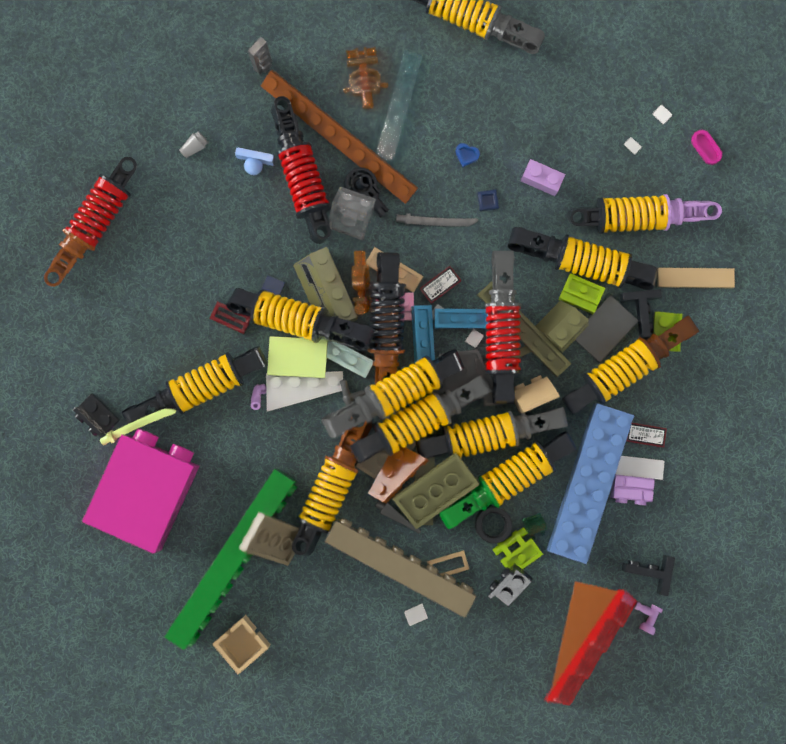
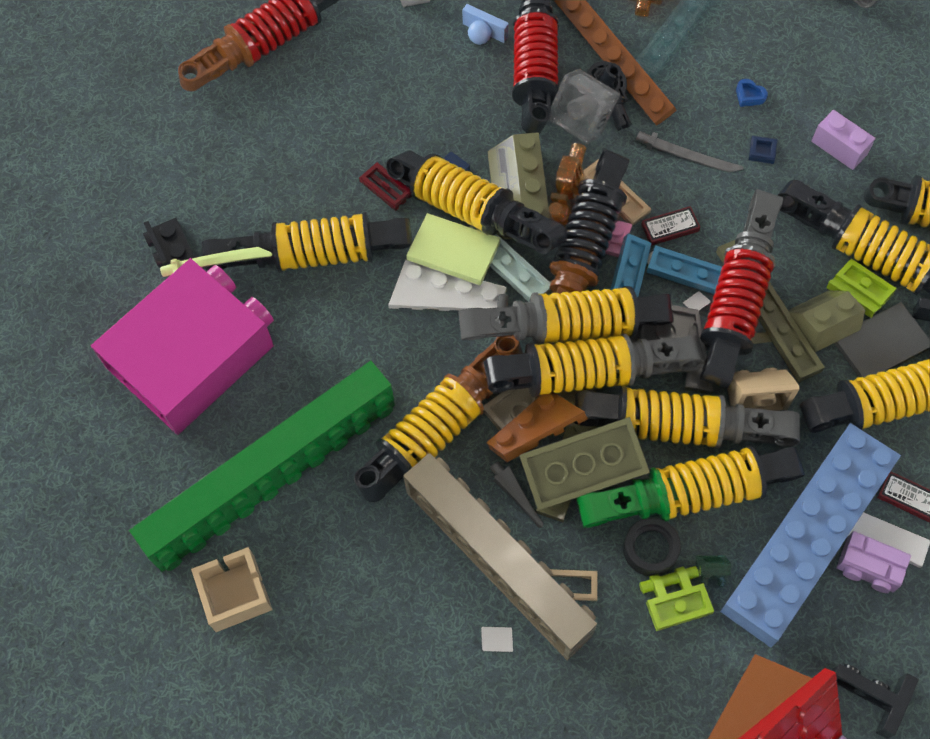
camera: 25 degrees right, 20 degrees down
(256, 396) = (384, 280): lavender arm -> none
(270, 539) = (329, 448): dark tan plate -> none
(510, 585) = (651, 637): bracket -> none

